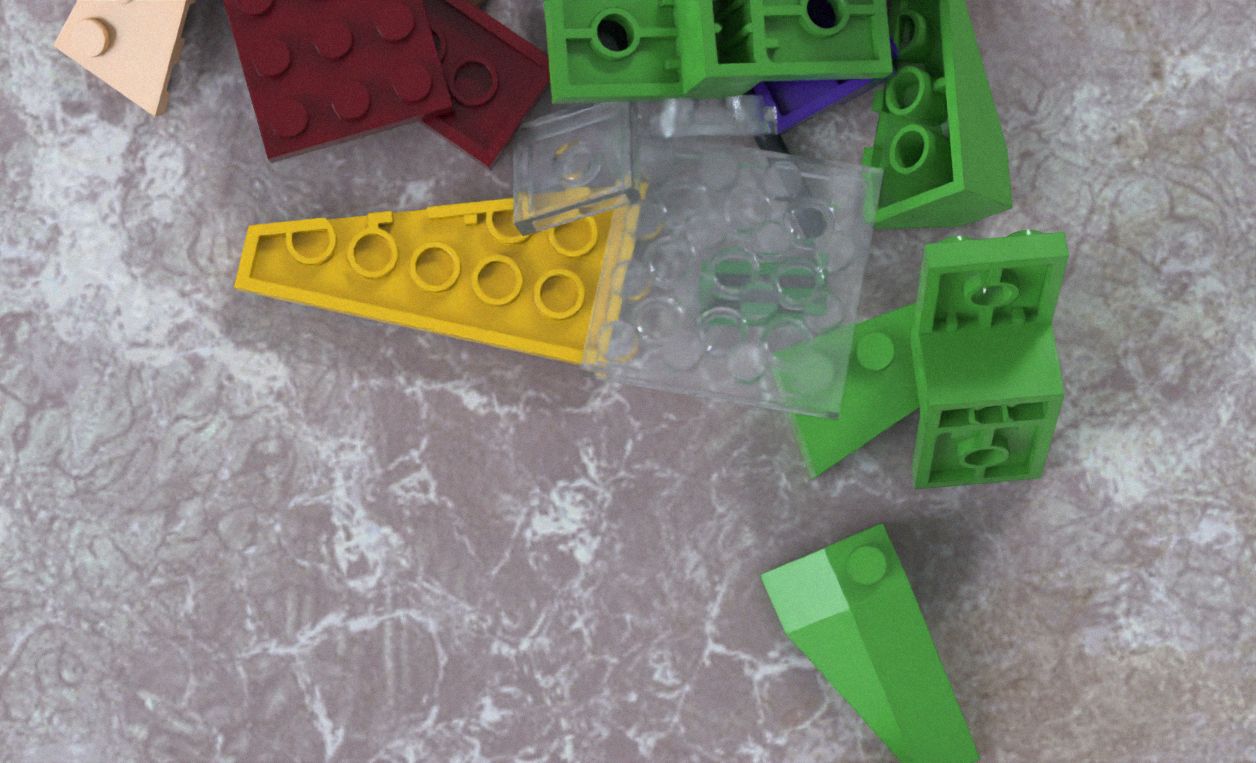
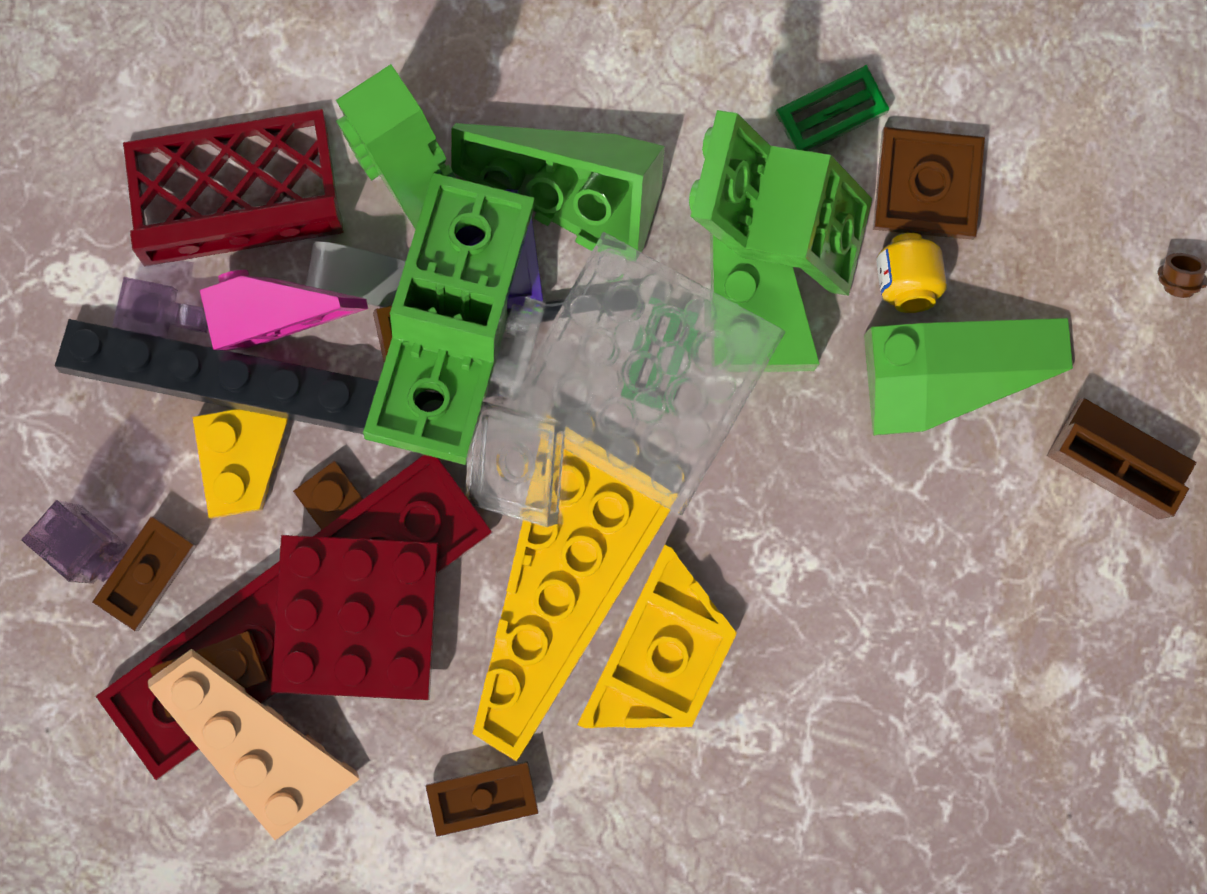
camera: 70 degrees left, 0 degrees up
(179, 264) = (482, 798): none -> reddish brown plate
(415, 414) = (663, 654): none -> yellow wing
(966, 552) = (911, 273): none -> yellow head
(1083, 539) = (929, 183): none -> reddish brown tile
(1111, 413) = (794, 130): none -> green tile

